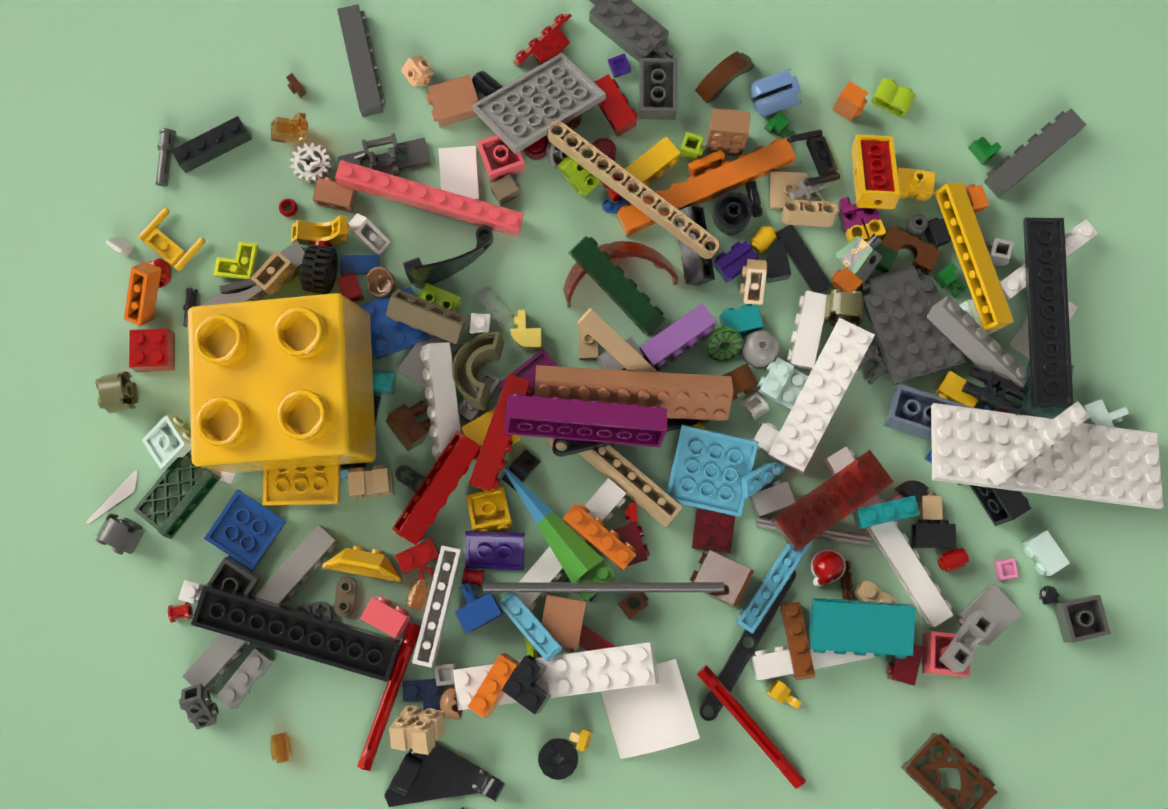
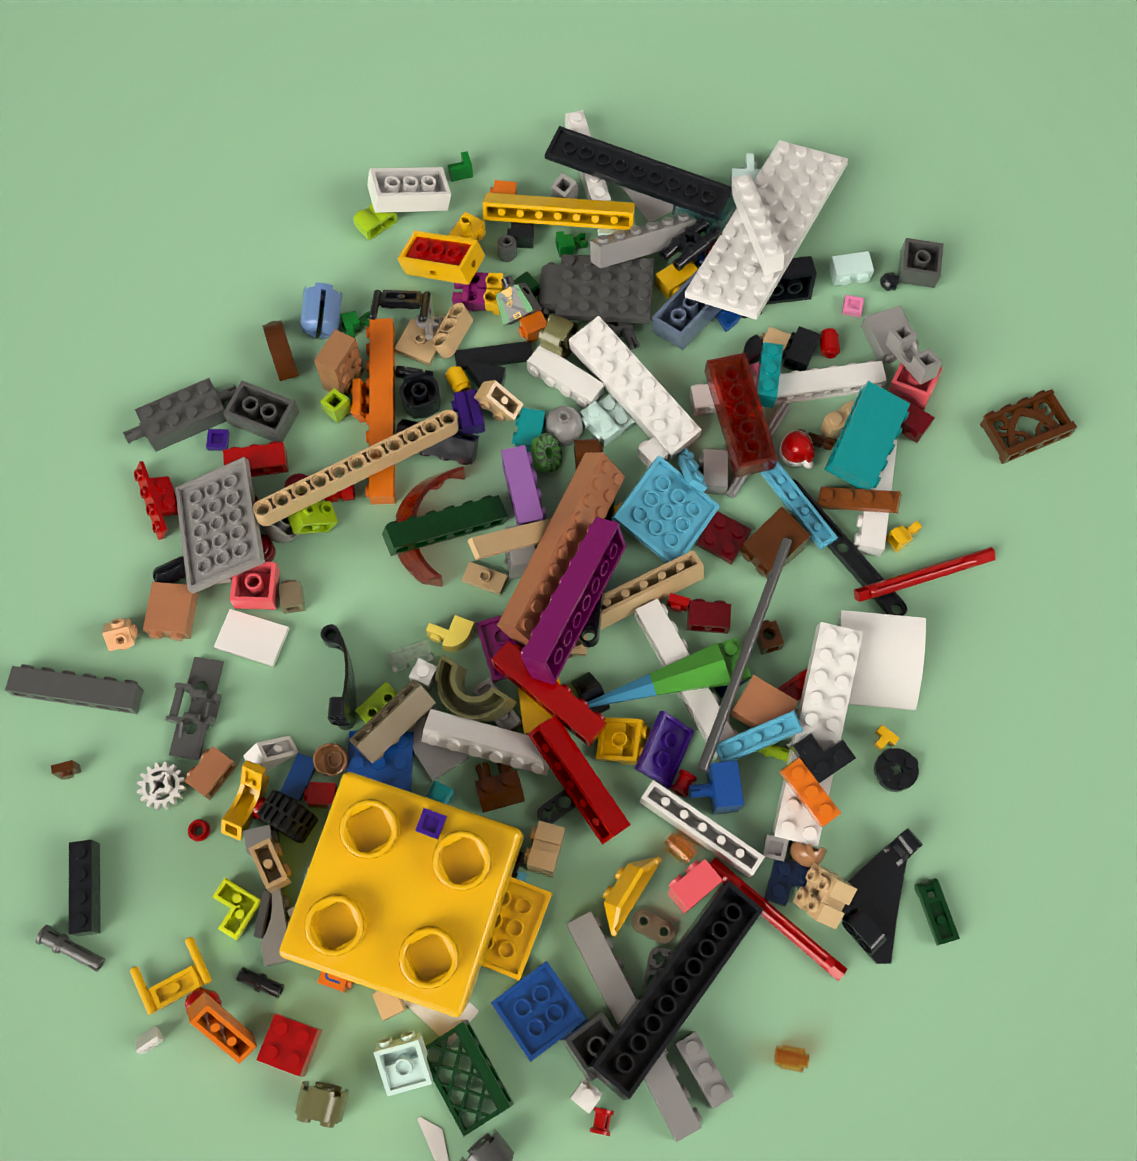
camera: 70 degrees left, 10 degrees down
(198, 706) = (717, 1133): dark grey brick -> none
(289, 130) = (113, 794): clear orange brick -> none
(323, 378) = (431, 823): none -> dark purple plate
(418, 557) = (642, 830): red brick -> none
(428, 198) = (263, 674): coral brick -> none
(603, 540) = (693, 637): orange brick -> none
(612, 207) = (361, 501): blue arm -> none
(655, 162) = (332, 440): yellow brick -> none
(755, 406) = (617, 451): white slope -> none
(851, 101) = (362, 251): orange brick -> none
(924, 254) = (537, 253): reddish brown arch -> none
(933, 113) = (408, 189): none -> white brick
(1034, 153) = (484, 131): dark grey brick -> none

